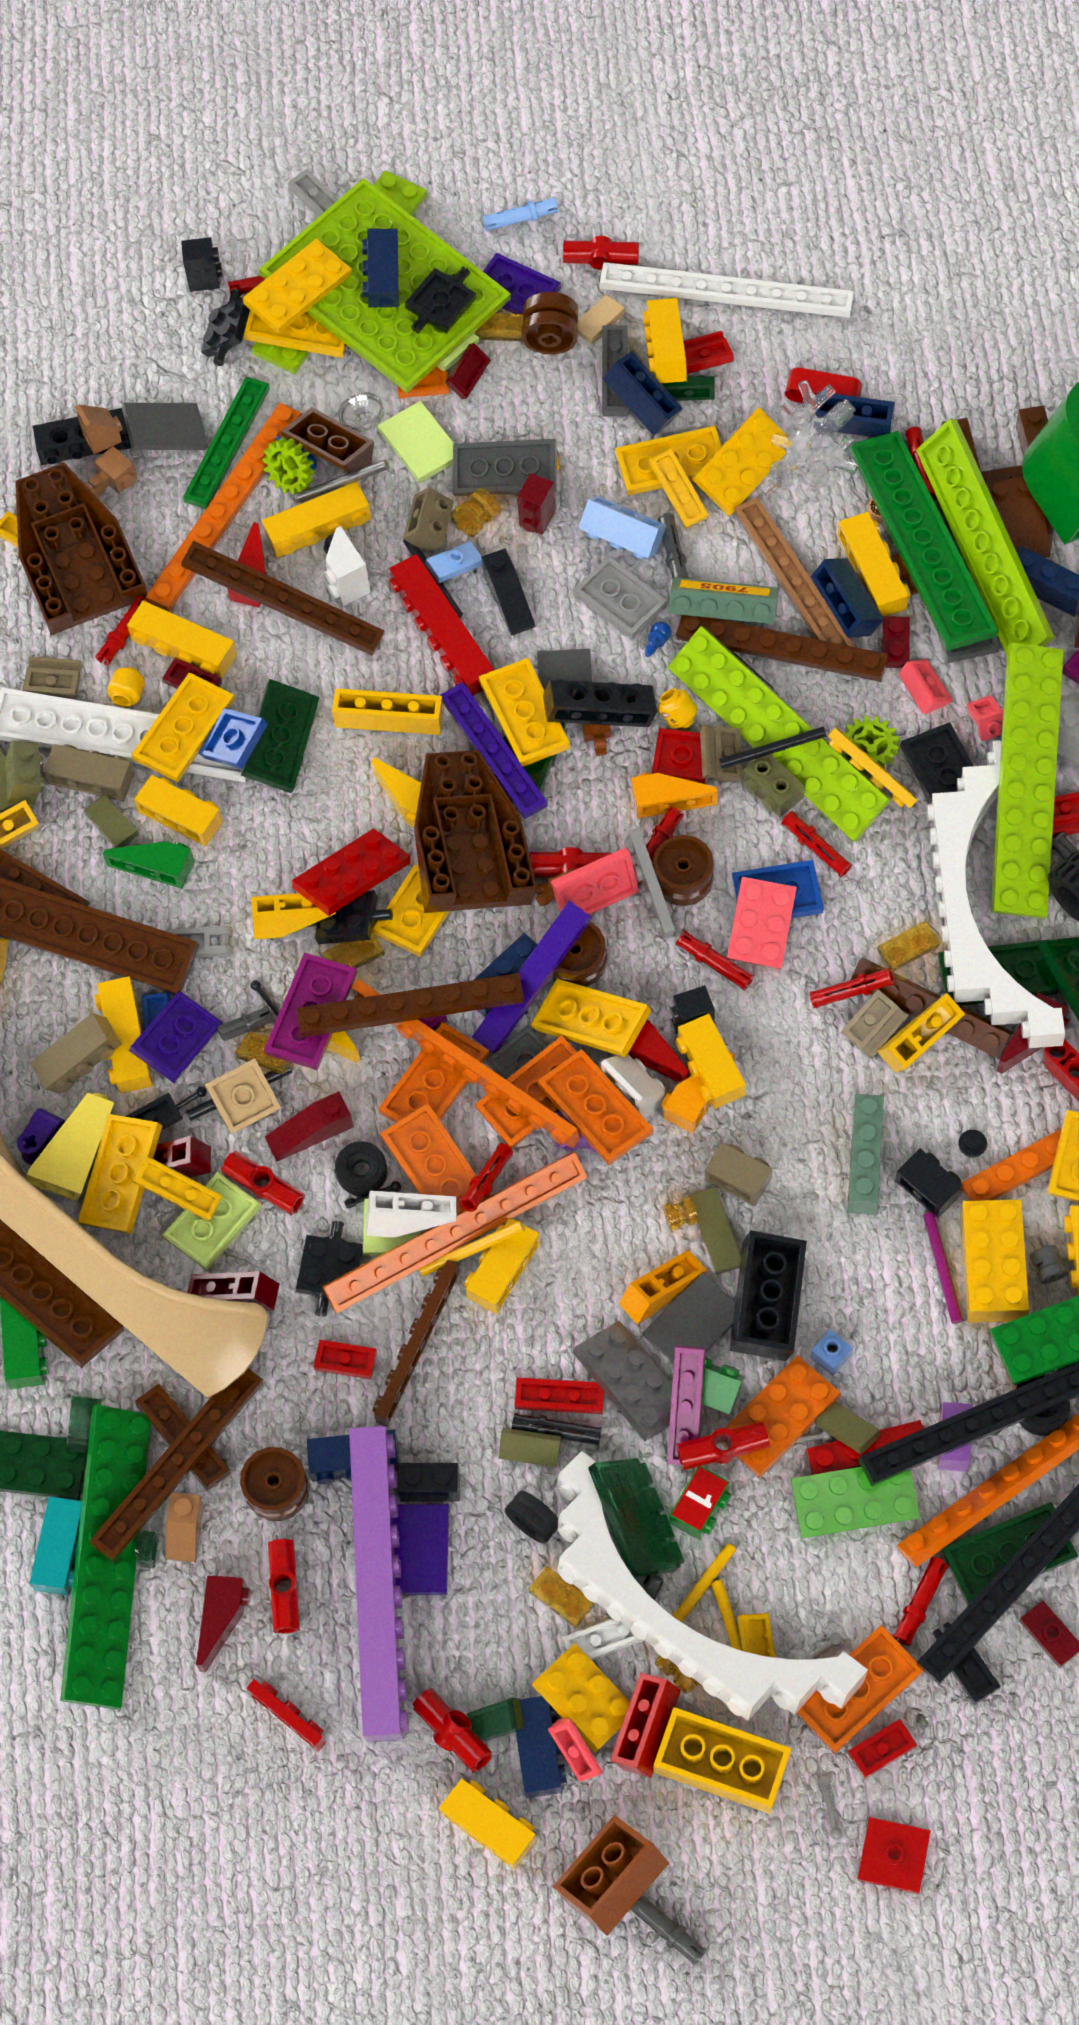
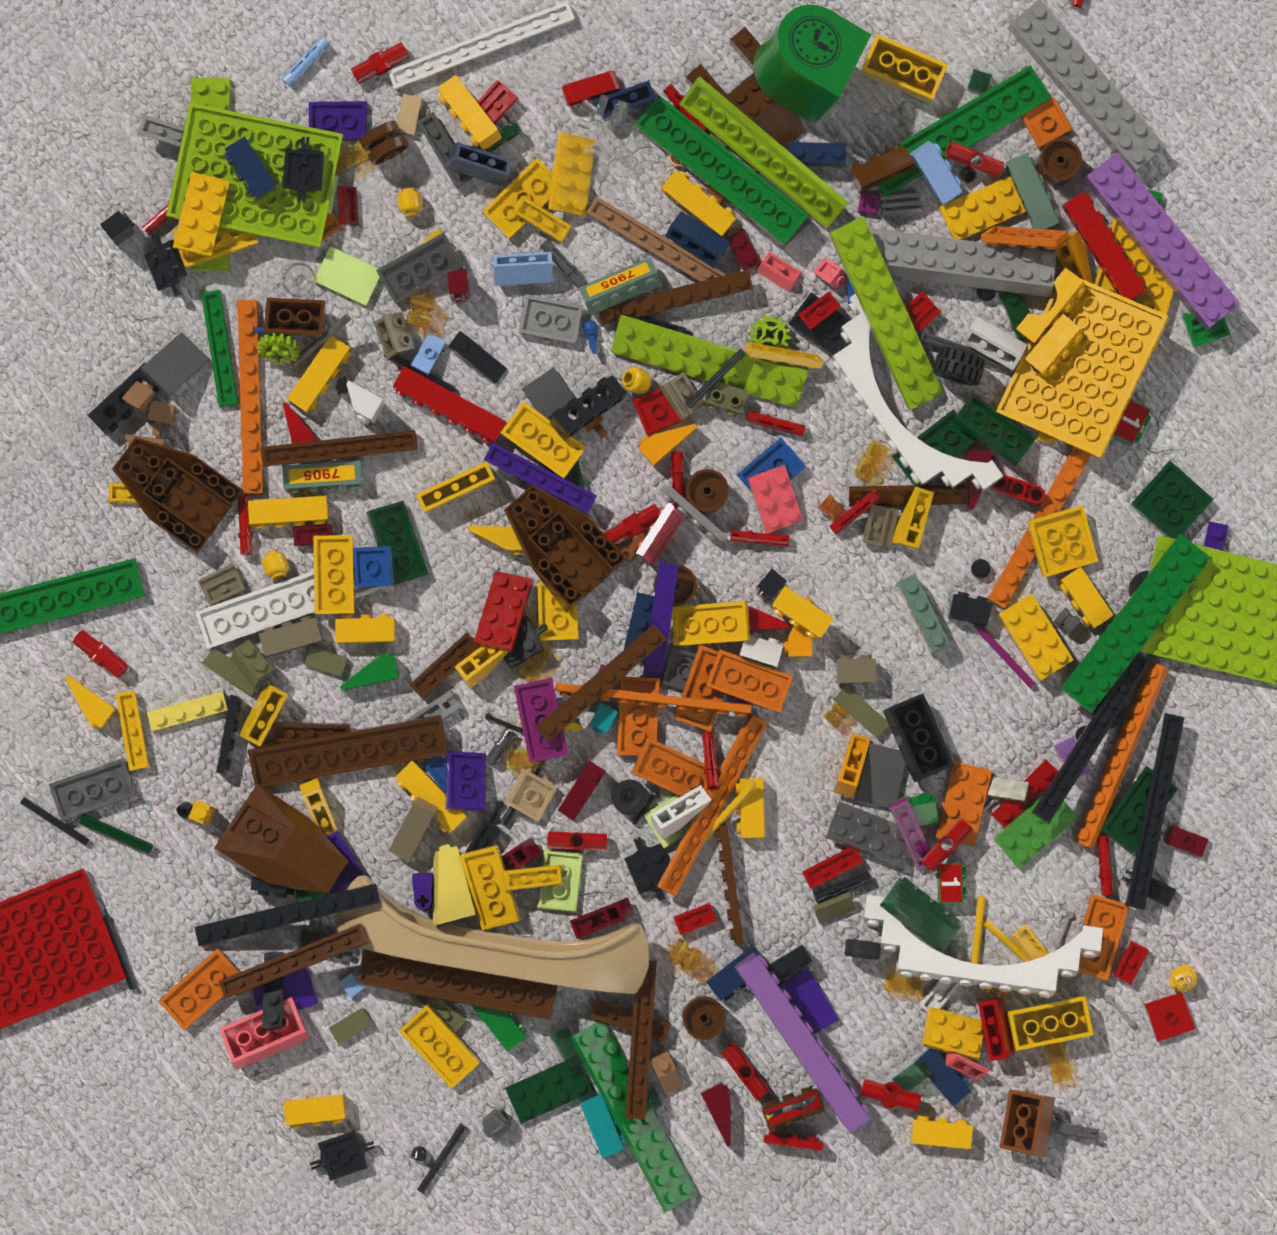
camera: 40 degrees left, 20 degrees up
(234, 899) = (444, 666): none -> reddish brown plate
(246, 623) = (322, 475): none -> brick
(305, 1399) = (684, 955): none -> clear yellow wheel
(310, 1669) = (792, 1108): none -> wedge
(389, 1059) = (603, 719): none -> teal brick
(540, 399) = (410, 202): none -> yellow head
(704, 1823) = (1058, 1062): none -> clear yellow plate
(825, 970) = (831, 507): none -> clear orange wheel
(831, 1361) = (966, 752): medium blue plate -> none
(942, 1811) = (1183, 978): none -> yellow head
(947, 742) = (819, 310): none -> red plate

